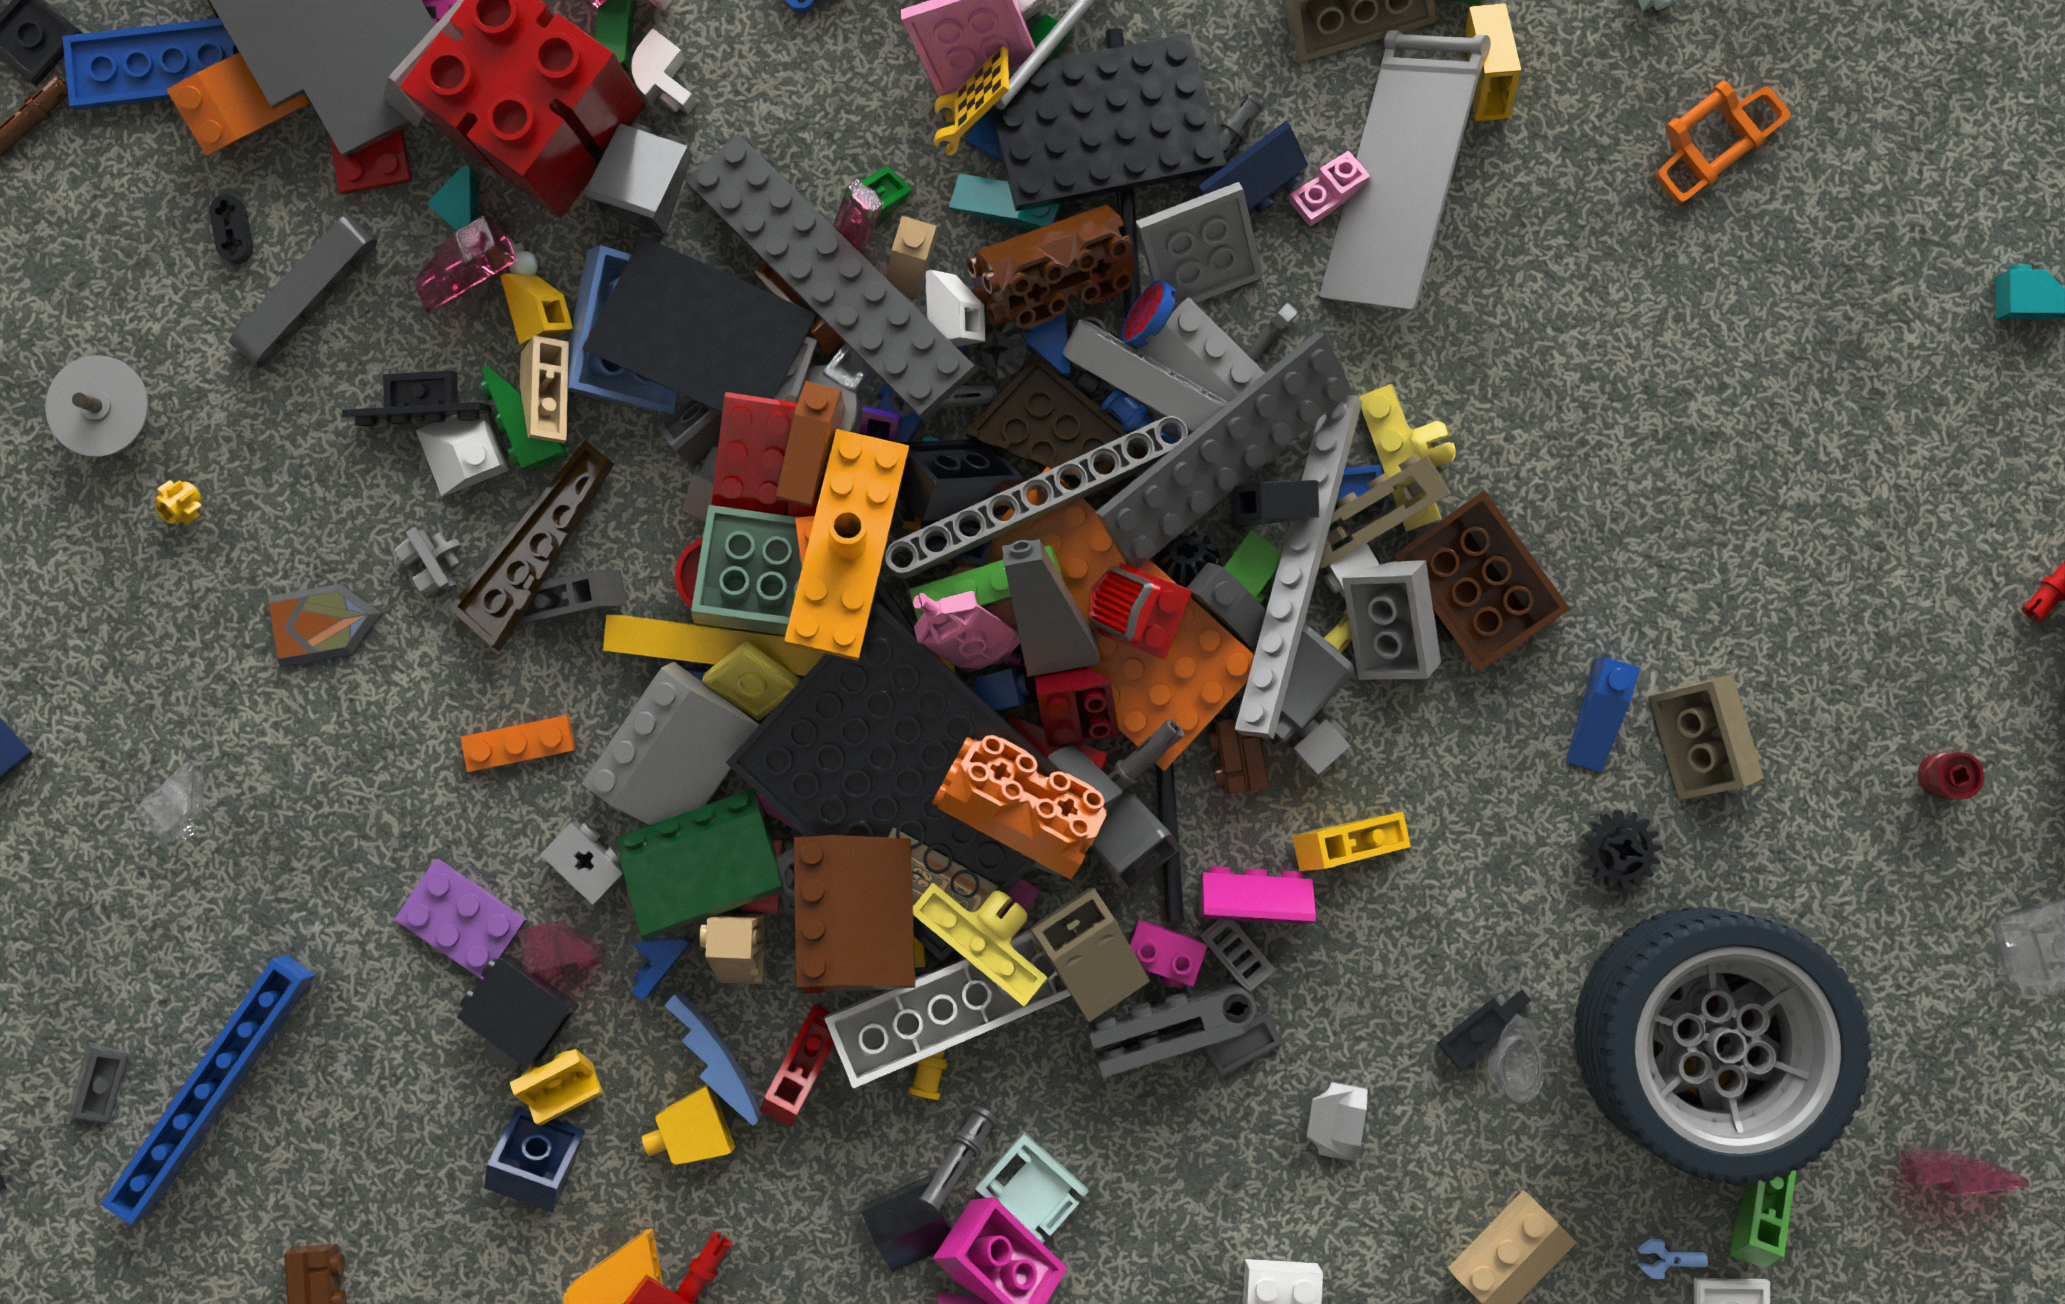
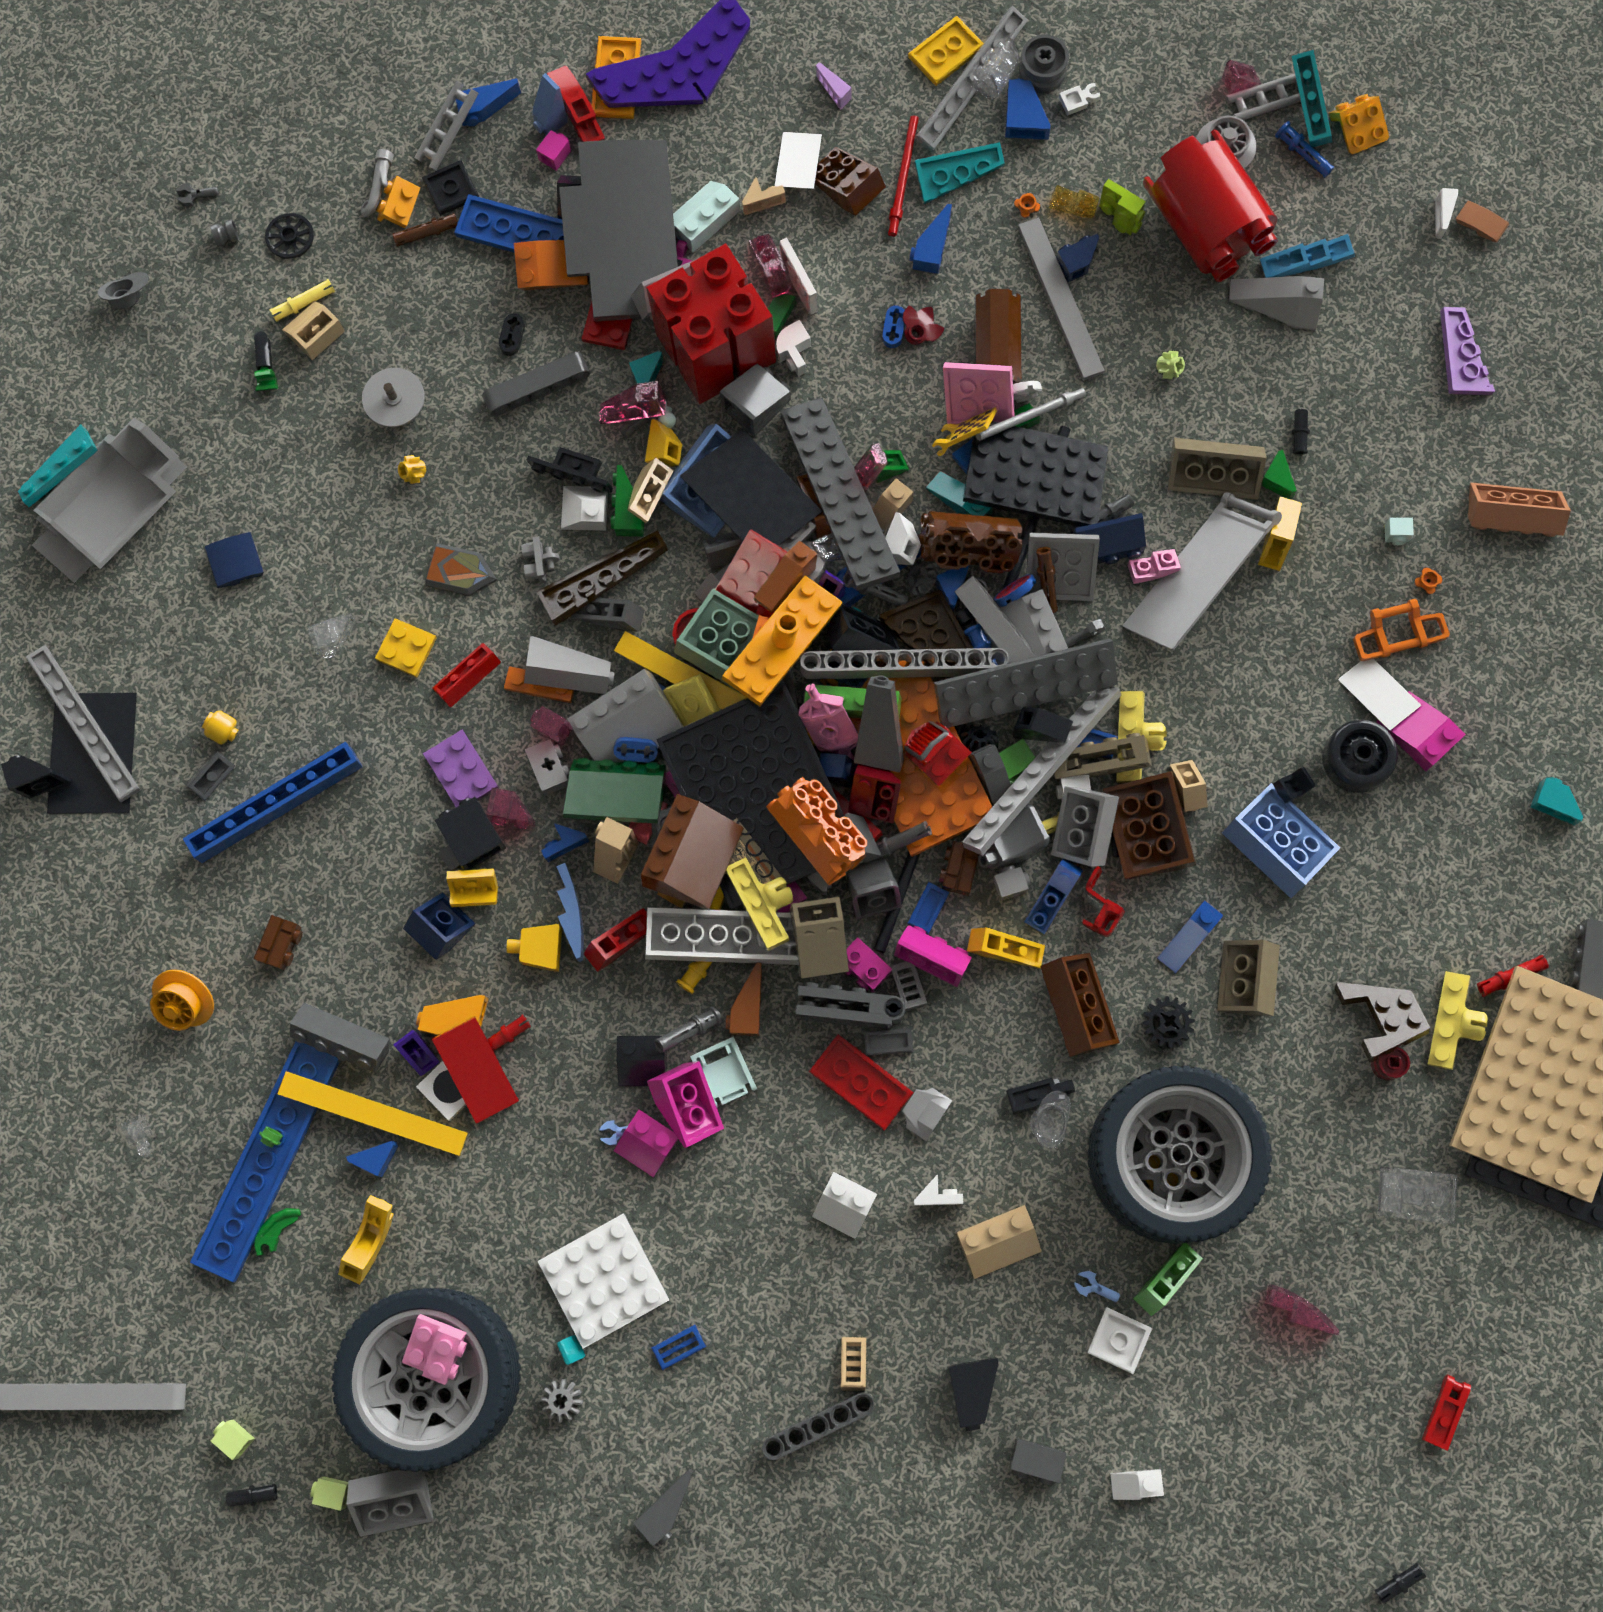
camera: 30 degrees right, 10 degrees down
(78, 1010) = (220, 727): none -> yellow head
(296, 773) = (406, 647): none -> yellow plate
(404, 775) = (466, 675): none -> red slope
(544, 707) = (566, 668): none -> light grey slope
(561, 804) = (551, 725): none -> clear pink piece
(701, 786) = (635, 755): none -> blue beam
(1026, 1092) = (746, 1009): none -> dark orange slope
(1175, 251) = (1044, 558): none -> reddish brown pin
(1217, 829) = (928, 907): none -> blue tile
(1229, 1117) = (861, 1082): none -> red tile
(1388, 735) = (1053, 895): none -> blue slope
(1395, 1238) = (930, 1195): none -> white slope
(1476, 727) = (1109, 911): none -> red piece
(1488, 877) = (1079, 1004): none -> reddish brown slope
(1513, 494) = (1189, 785): none -> tan slope
(1659, 431) = (1294, 785): none -> black bracket
(1673, 519) = (1281, 841): none -> medium blue slope
(1714, 366) = (1347, 768): none -> black wheel
(1724, 242) = (1379, 693): none -> white sticker
(1737, 39) = (1434, 578): none -> orange plate
(1804, 273) = (1425, 734): none -> dark pink slope
(1930, 703) = (1394, 1012): none -> wing
(2012, 675) = (1454, 1021): none -> light yellow plate

